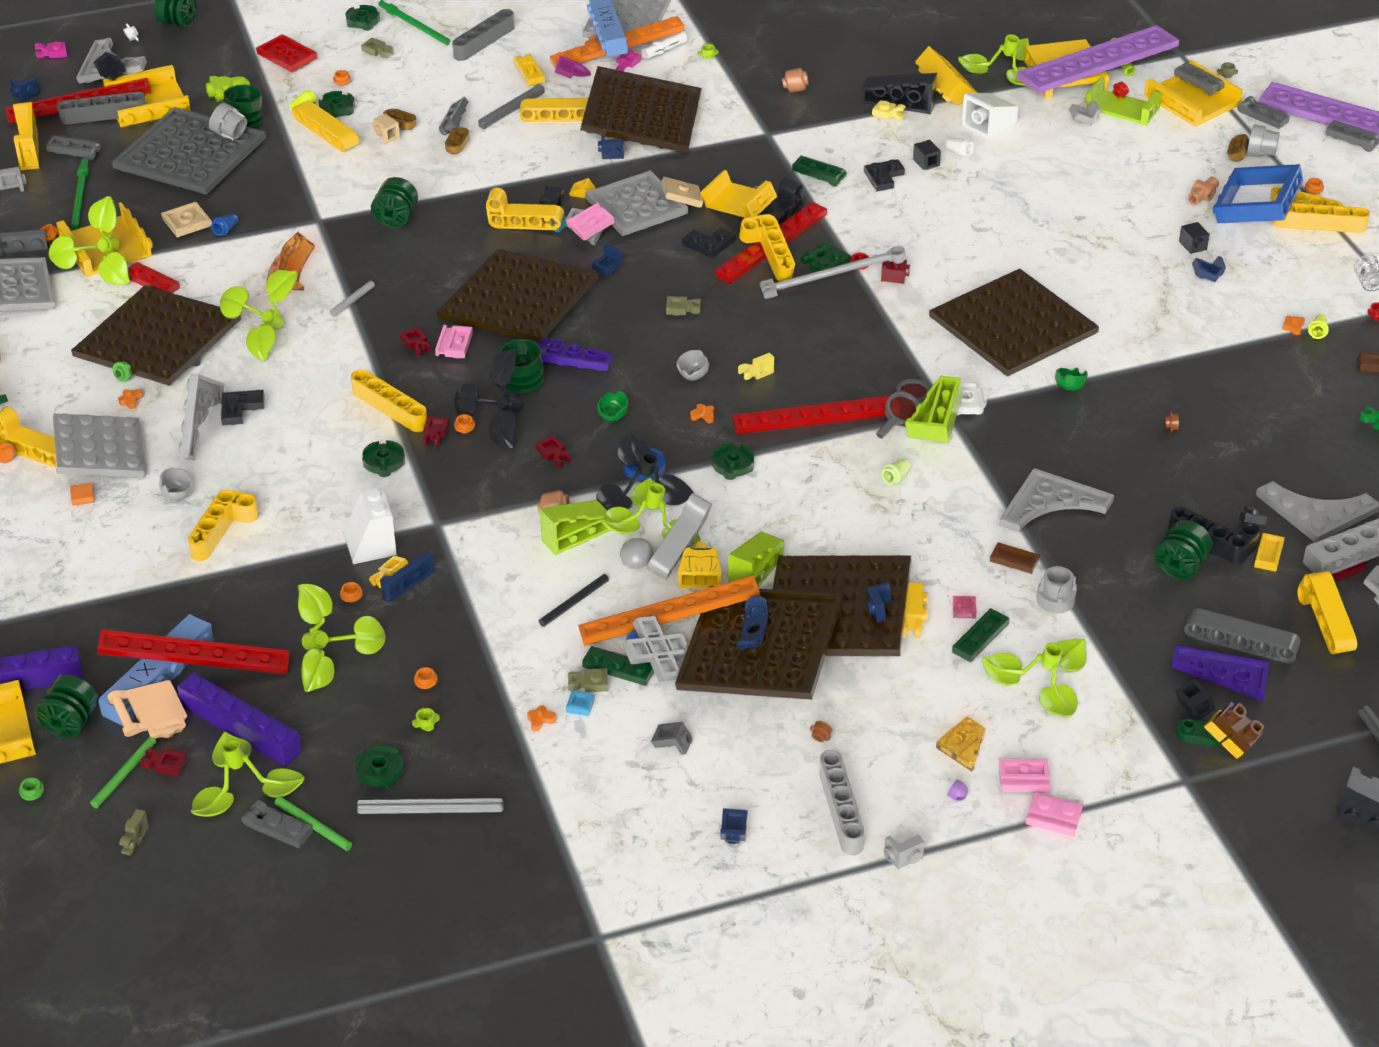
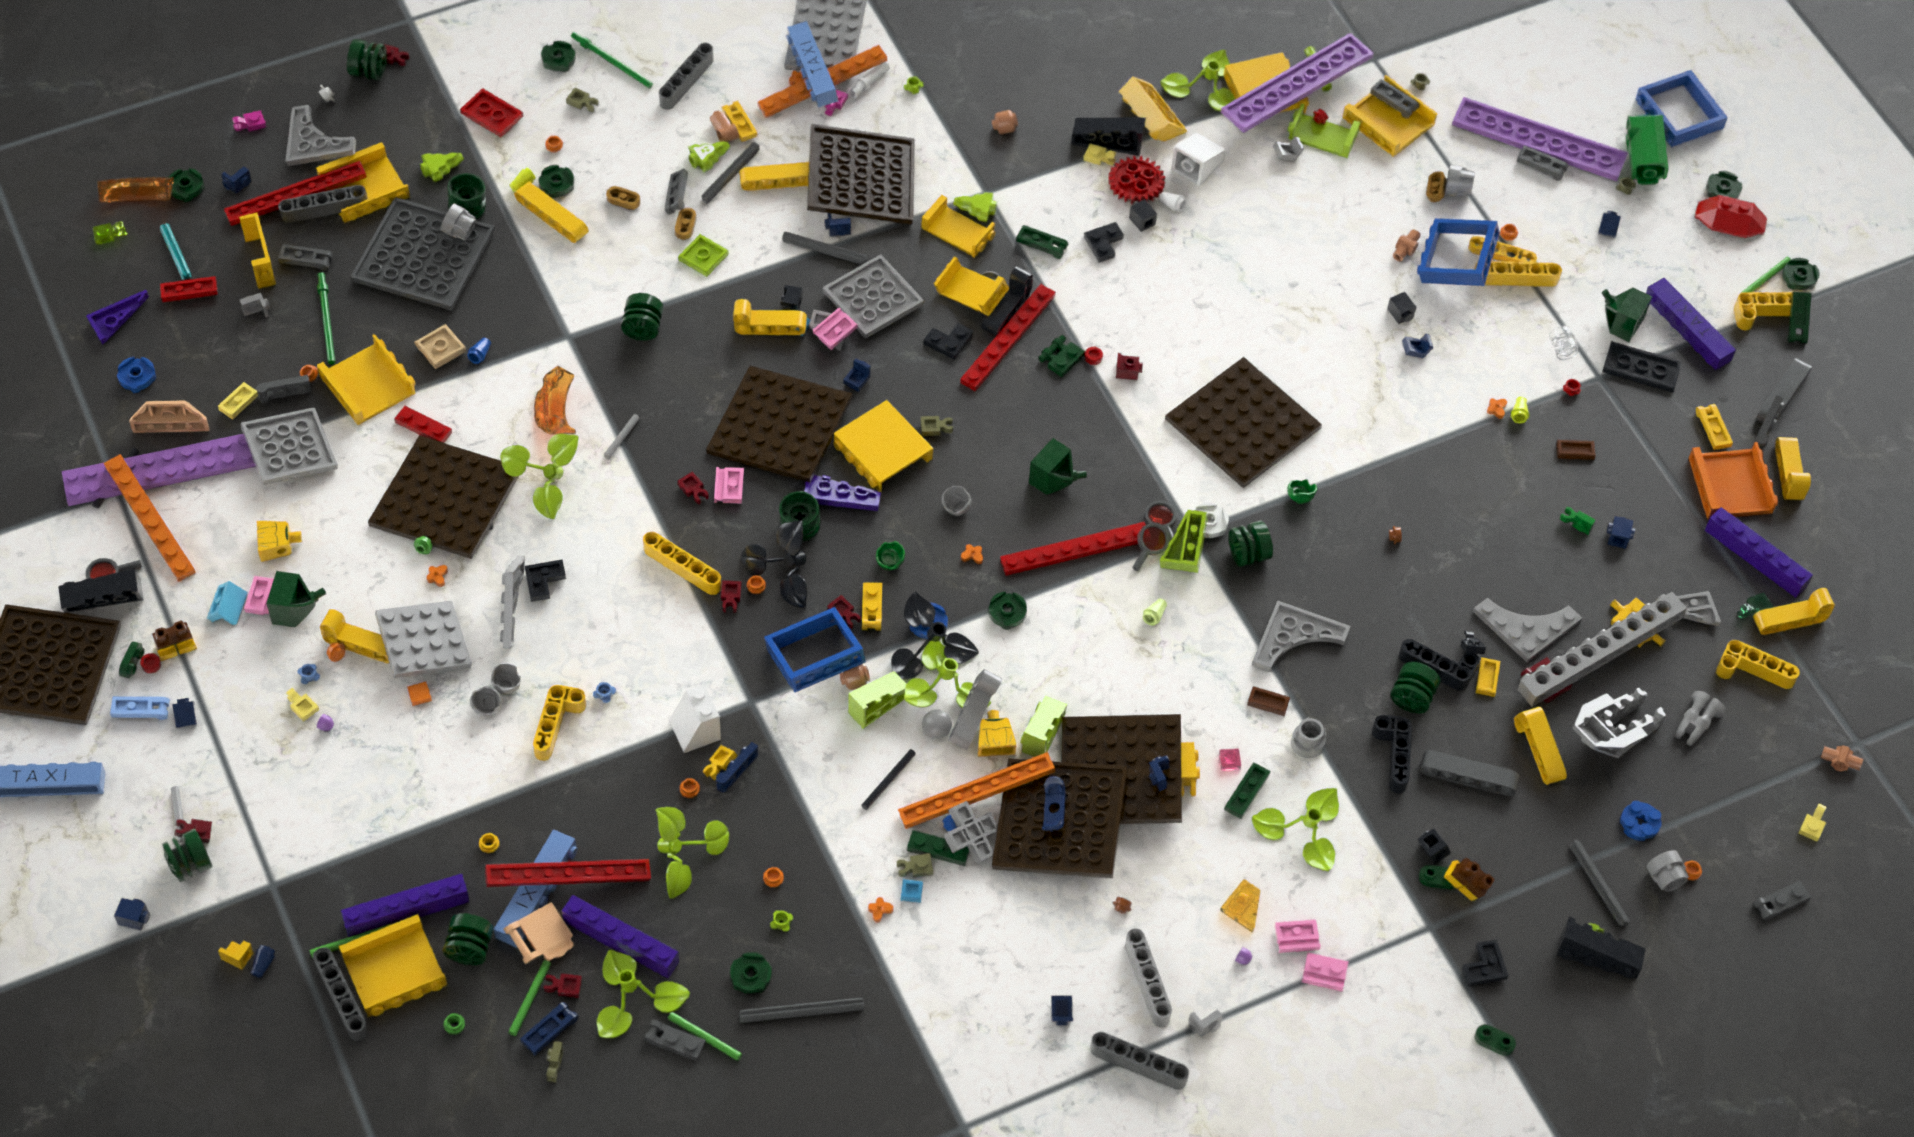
camera: 10 degrees left, 15 degrees up
(109, 66) = (321, 154): black panel -> none
(115, 267) = (368, 368): lime plant -> none
(118, 623) = (486, 838): none -> yellow plate
(138, 798) = (548, 1028): none -> dark blue plate
(148, 502) = (485, 701): none -> light grey hair
(205, 10) = (395, 55): none -> dark red plate
(279, 503) = (604, 687): none -> medium blue plate
(383, 457) = (689, 640): dark green plate -> none
(386, 128) = (612, 212): tan brick -> none
(470, 165) = (703, 255): none -> lime tile
(491, 91) = (706, 154): none -> lime rock
(512, 74) = (725, 130): none -> nougat piece
(515, 489) = (822, 669): none -> blue window
(569, 67) = (780, 117): magenta plate -> none
(579, 188) = (817, 279): yellow slope -> none
(585, 449) = (872, 606): none -> yellow plate
(592, 165) = (824, 248): none -> dark grey axle
(621, 315) = (881, 444): none -> yellow panel
(672, 735) = (997, 922): dark grey bracket -> none
(682, 192) = (915, 281): tan plate -> none
(731, 158) = (956, 228): none -> yellow panel
(757, 140) = (978, 205): none -> lime rock
(760, 368) = (1018, 497): light yellow plate -> none
(767, 231) = (1020, 369): yellow beam -> none
(769, 288) = (1013, 396): light grey hinge -> none
(799, 341) = (1053, 468): none -> dark green piece
(819, 883) = (1133, 1052): none -> dark grey beam
(924, 126) = (1136, 179): none -> red gear
(1008, 415) = (1250, 543): none -> dark green wheel
(1159, 592) = (1397, 754): none -> black beam
(1229, 671) = (1458, 811): dark purple wing -> none
(1254, 822) = (1491, 965): none -> black plate
(1257, 897) = (1494, 1040): none -> dark green plate
(1263, 113) = (1456, 136): dark grey plate -> none

